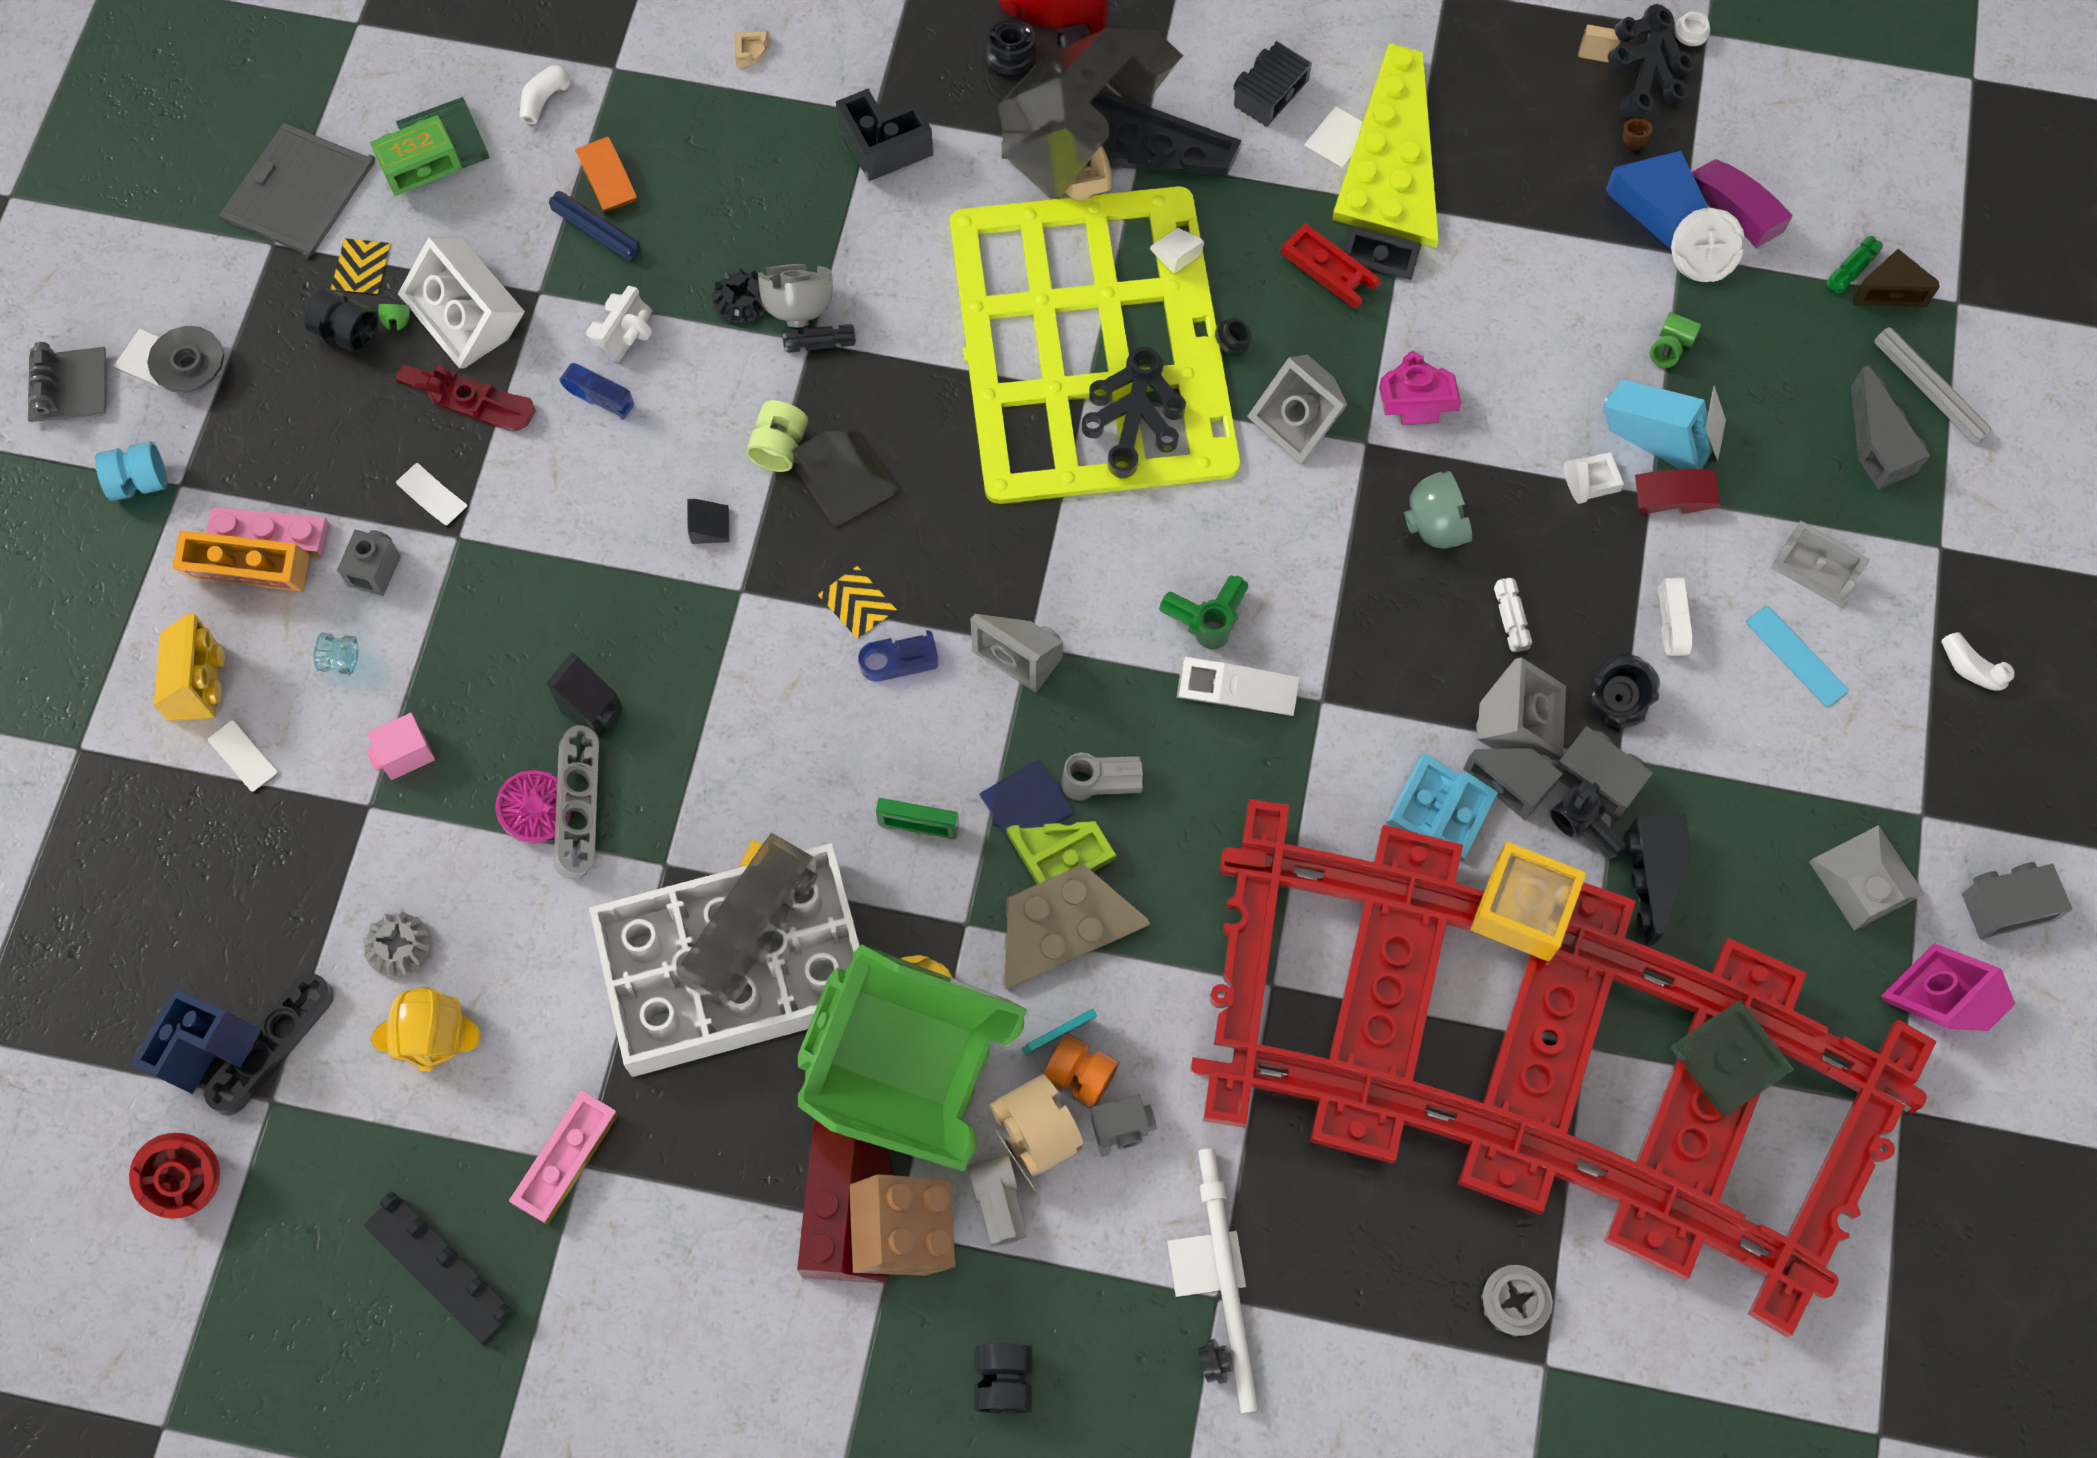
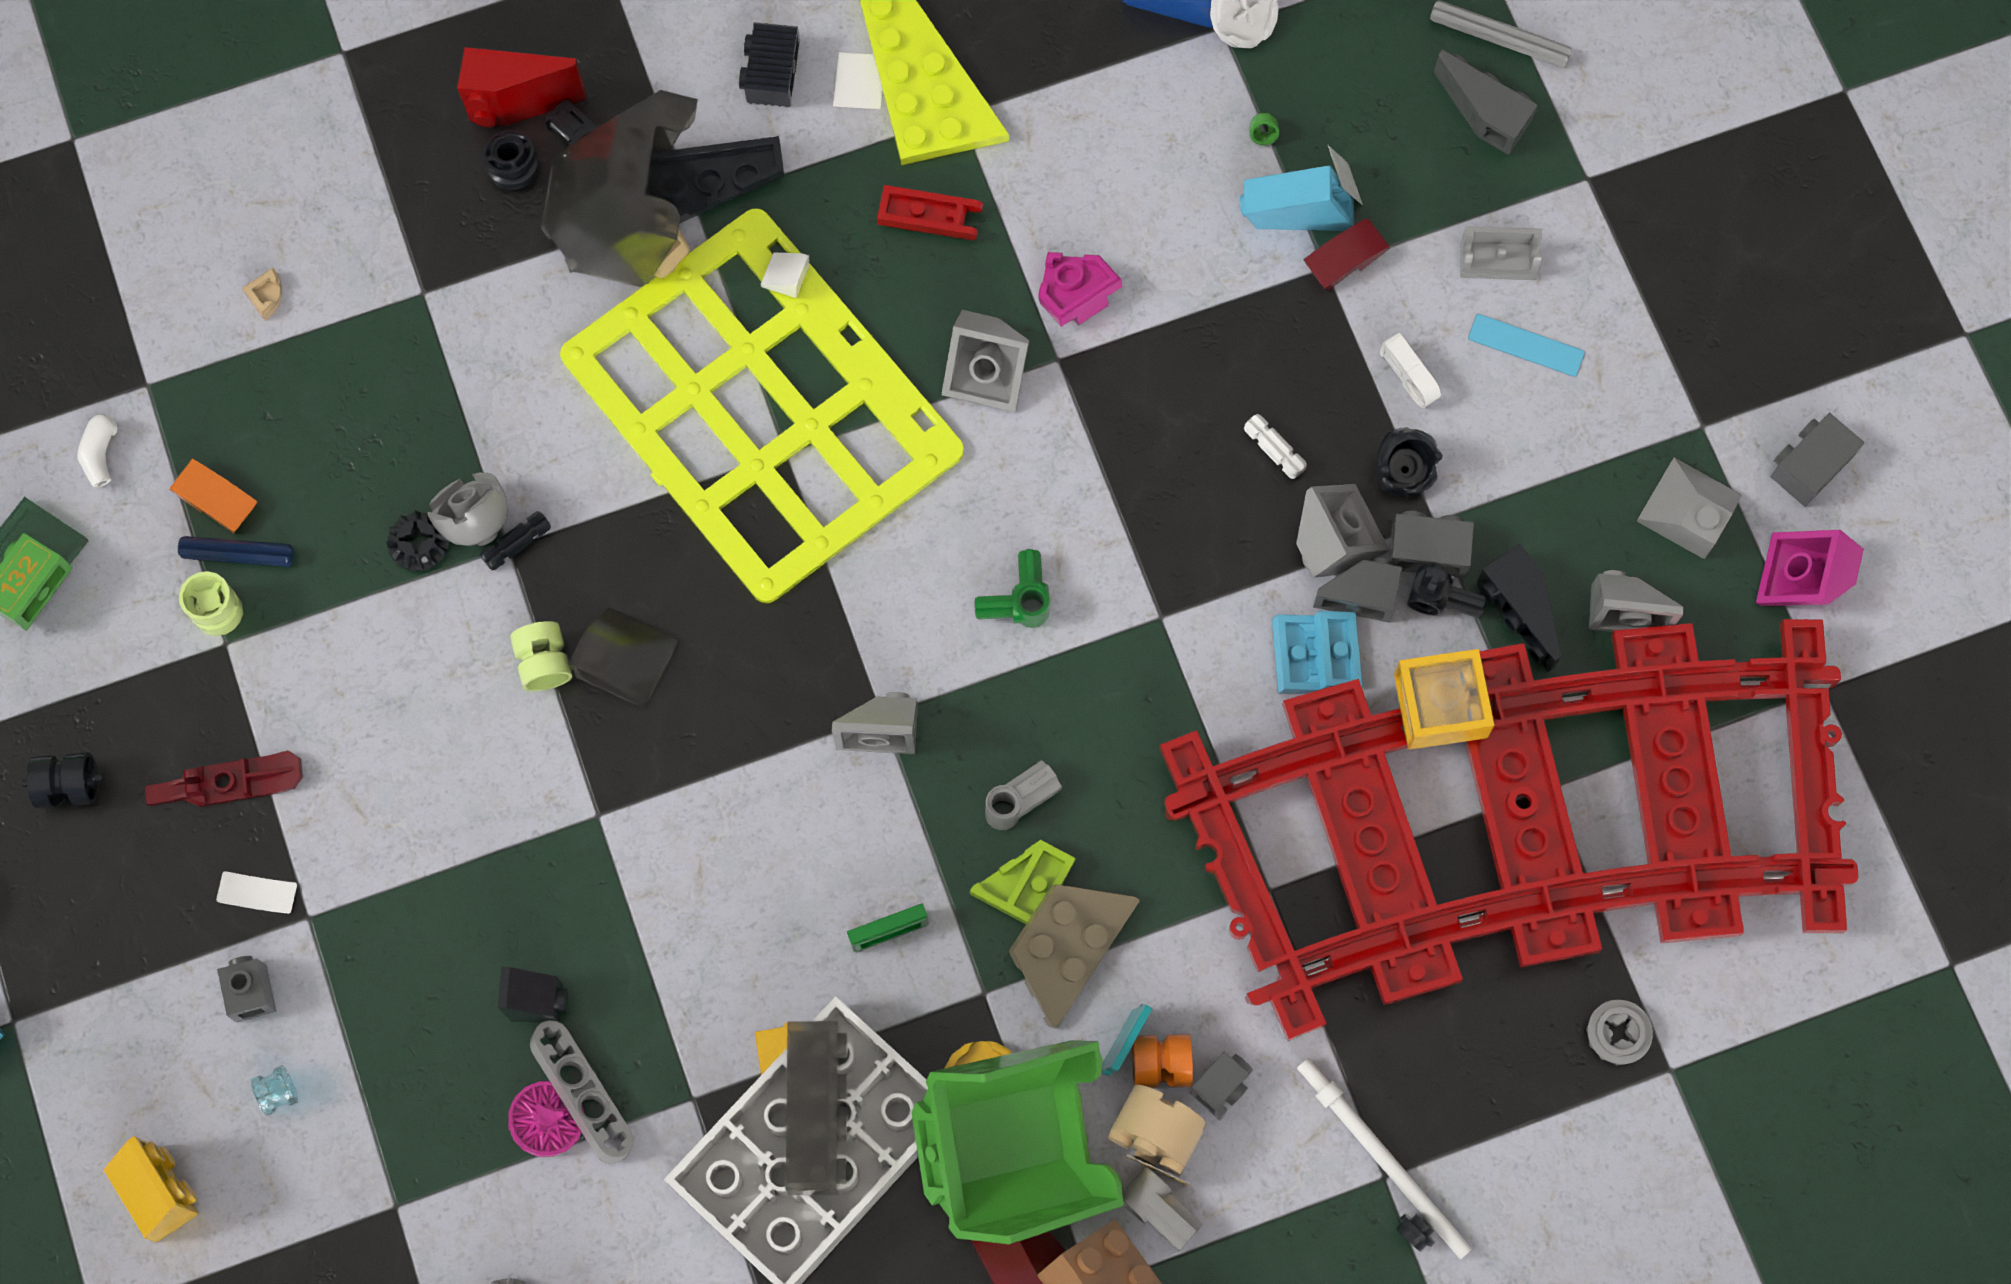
camera: 30 degrees left, 5 degrees up
(241, 561) = (129, 1059): light orange brick -> none
(242, 755) = (249, 1232): white sticker -> none
(303, 530) = (128, 1018): bright pink plate -> none
(360, 266) = (37, 715): sticker -> none
(391, 312) = (105, 743): bright green hinge -> none
(399, 747) = (390, 1139): bright pink brick -> none
(459, 300) = (160, 696): white slope -> none
(546, 251) = (211, 603): none -> yellowish green wheel
(597, 390) = (345, 707): clear blue piece -> none
(623, 325) = (331, 632): white hips -> none
(707, 522) = (528, 770): black slope -> none
(857, 602) = (707, 765): sticker -> none
(880, 140) = (450, 322): black brick -> none
(904, 657) = (782, 791): clear blue piece -> none
(1026, 800) = (967, 855): clear blue piece -> none
(1134, 406) = (841, 444): black plant -> none
(1196, 1267) = (1350, 1161): white sticker -> none
(1233, 336) = (885, 328): black plate -> none
(1237, 686) = (1084, 650): white slope -> none
(1382, 252) = (965, 172): black slope -> none
(1438, 512) = (1162, 392): sand green cylinder -> none
(1592, 477) = (1268, 281): white tile -> none
(1681, 328) = (1264, 101): bright green hinge -> none
(1731, 1058) = (1675, 732): clear green tile -> none
(1757, 923) = (1629, 603): none -> light grey slope
(1973, 666) = (1674, 272): white arm -> none

